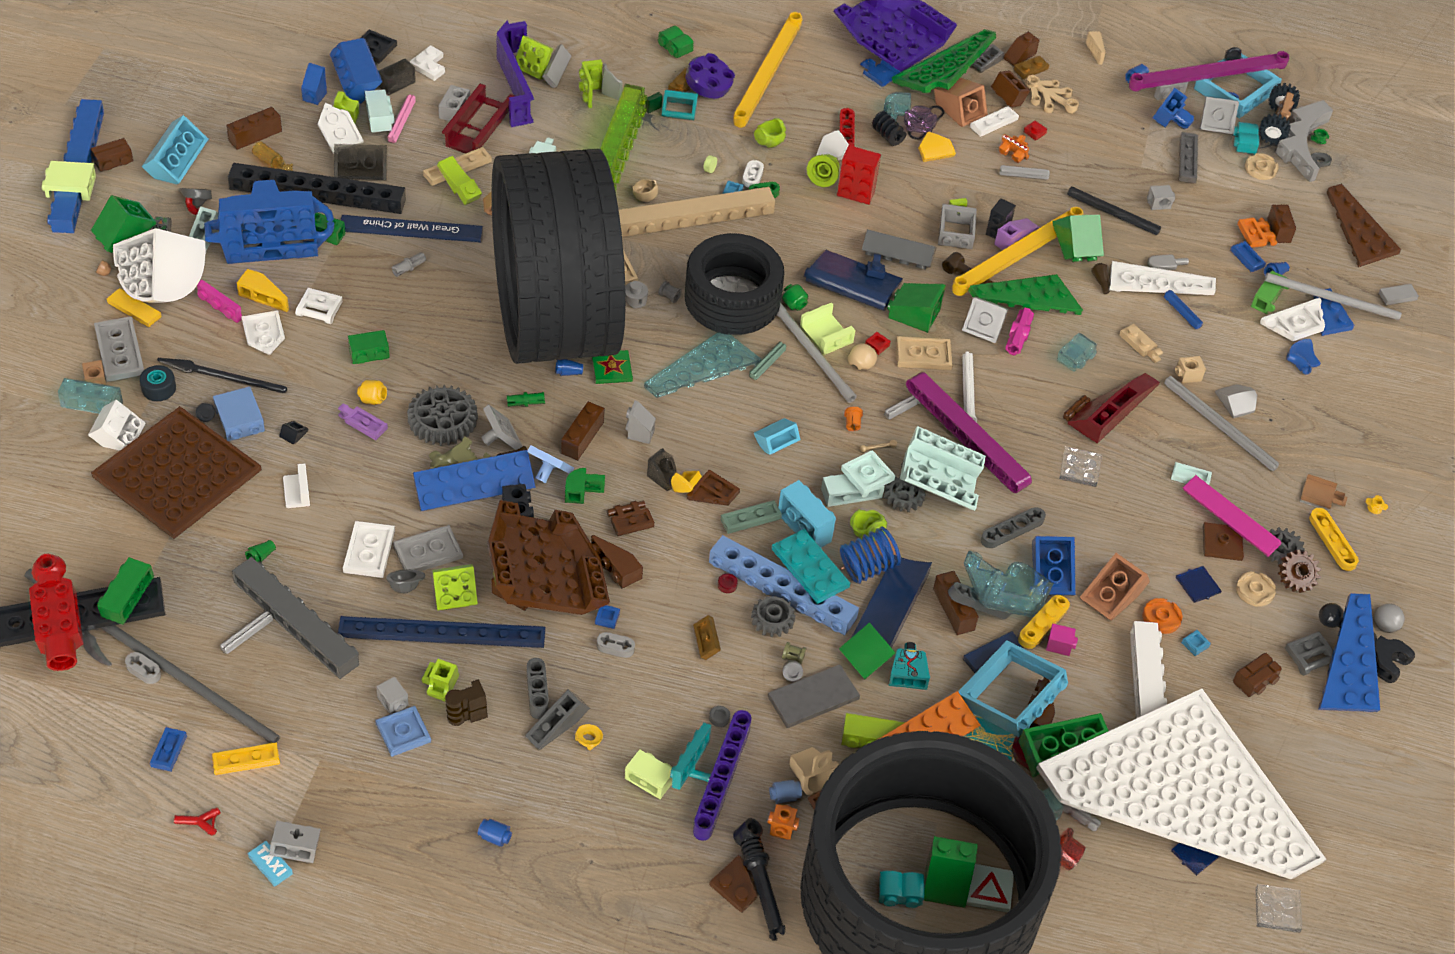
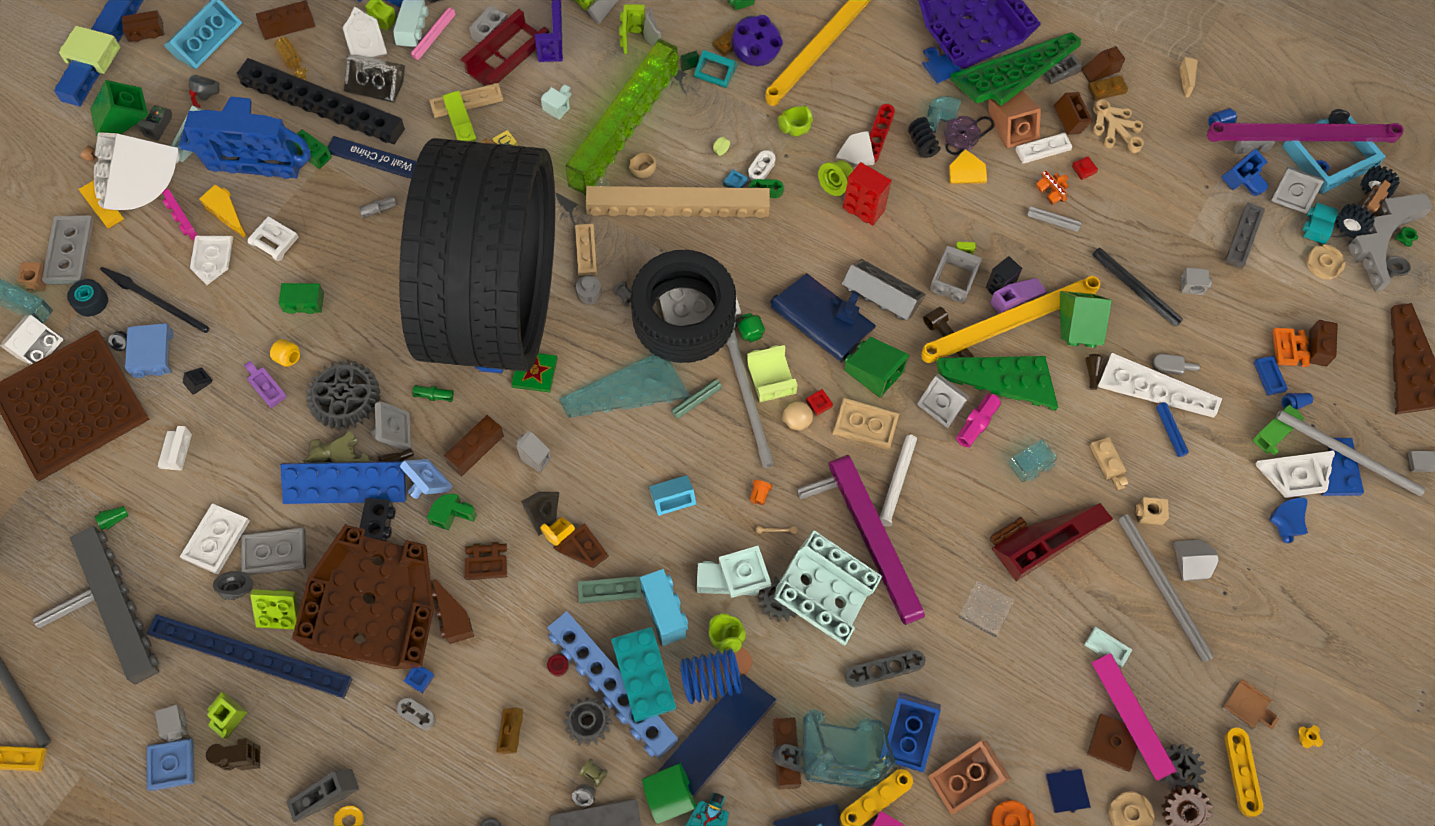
camera: 20 degrees right, 15 degrees up
(537, 680) = (319, 760): dark grey beam -> none

